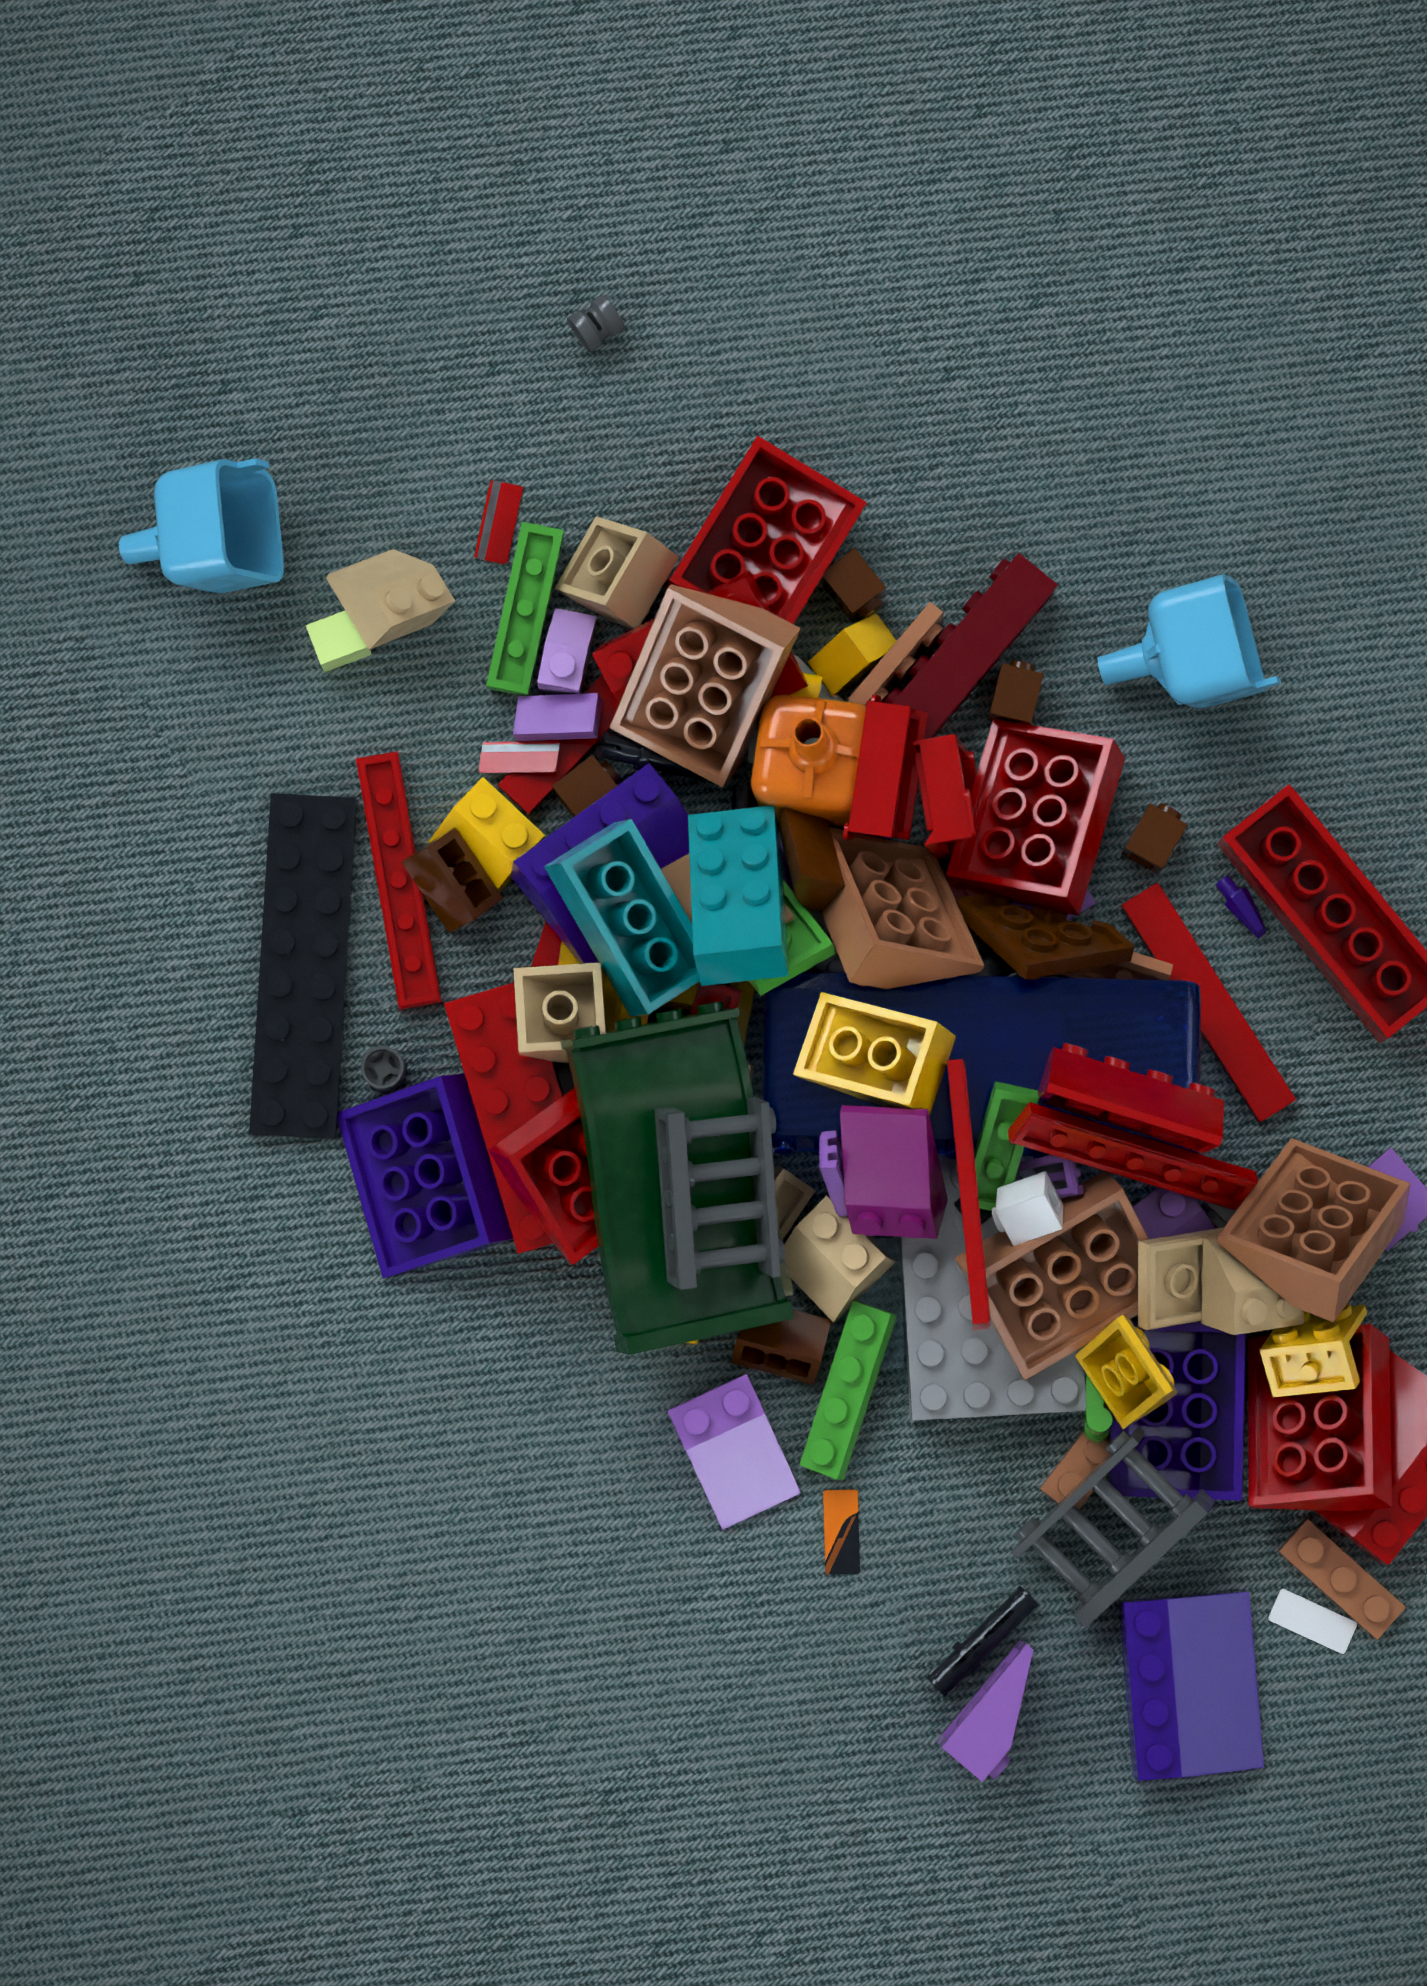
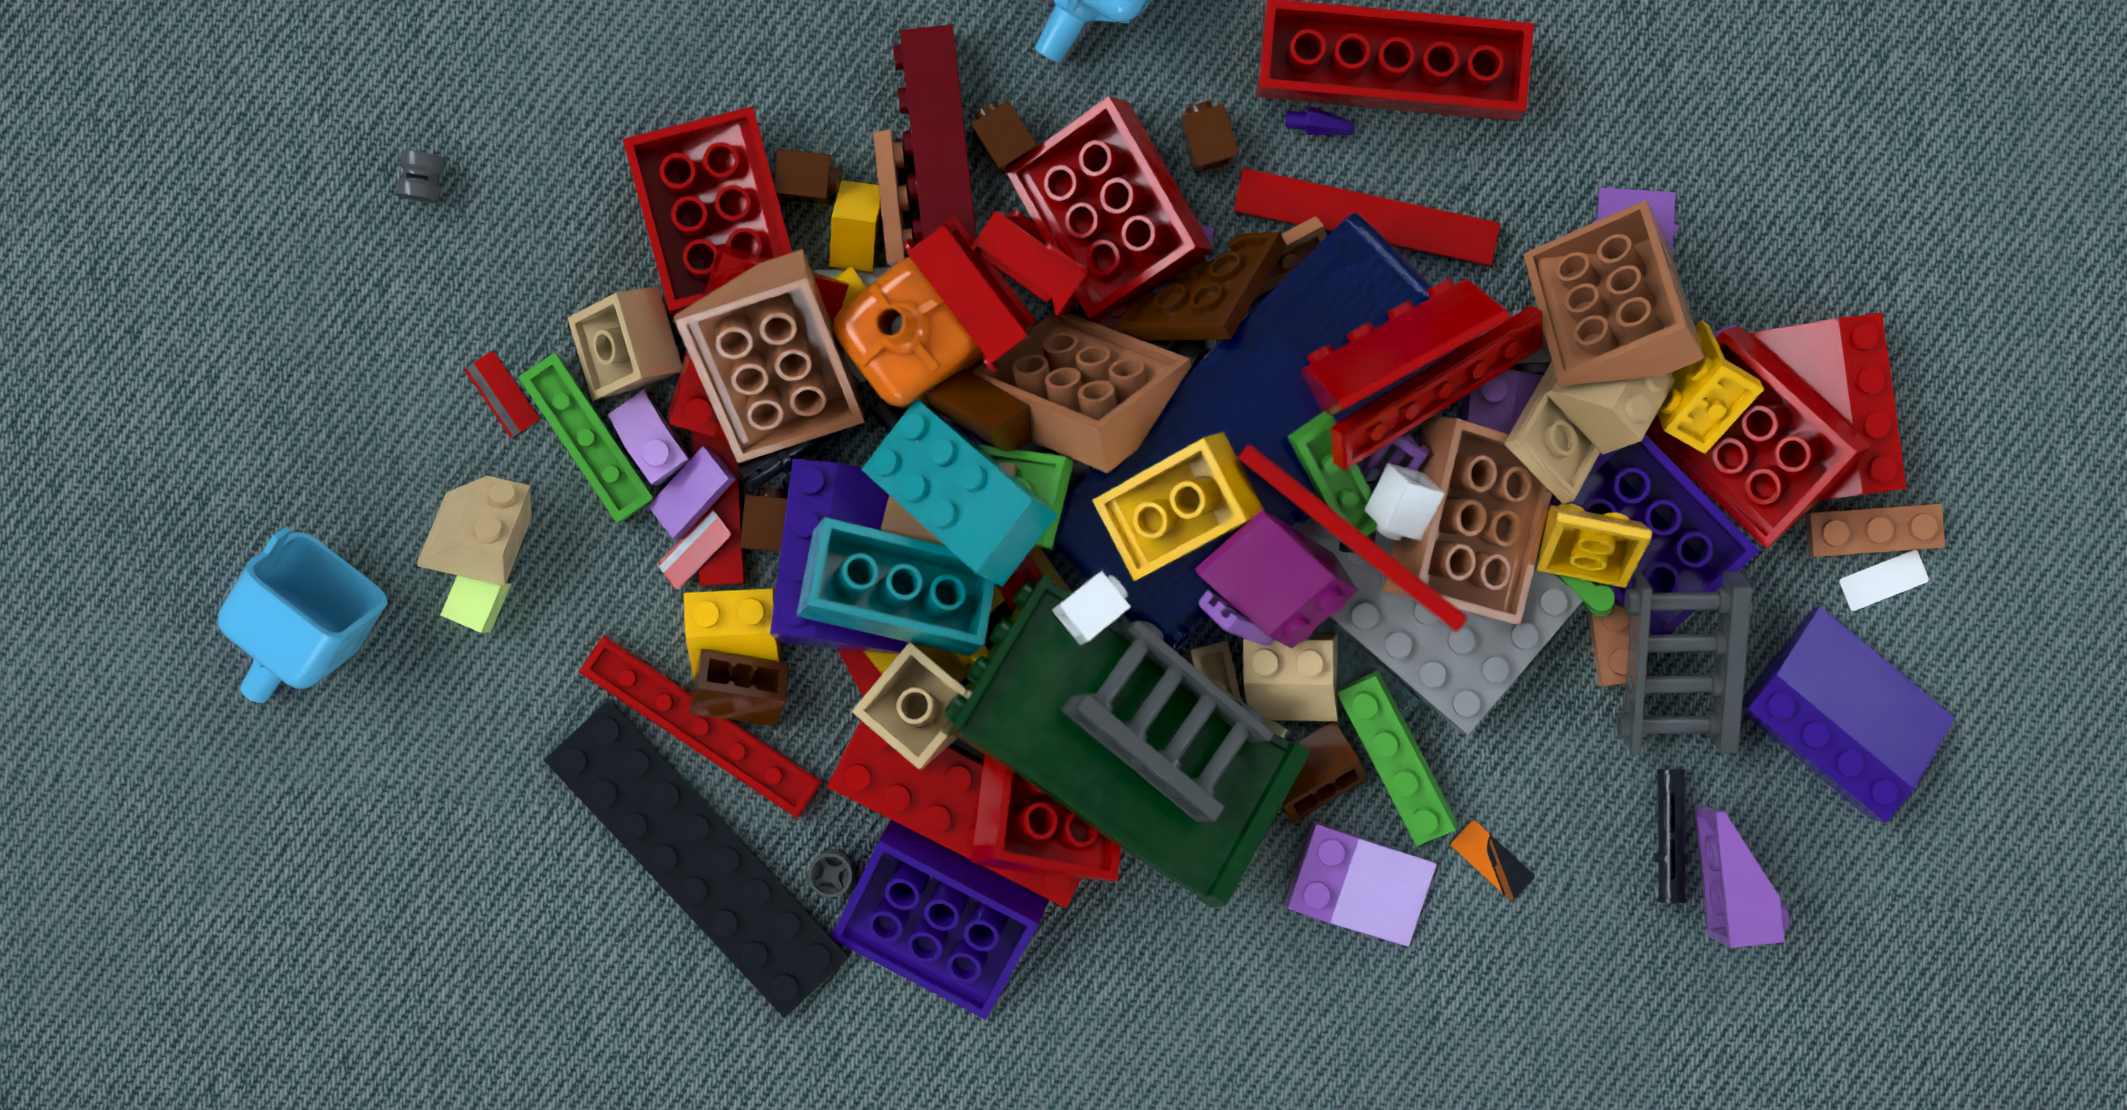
camera: 50 degrees left, 5 degrees up
(747, 1062) = (1092, 607): none -> white brick

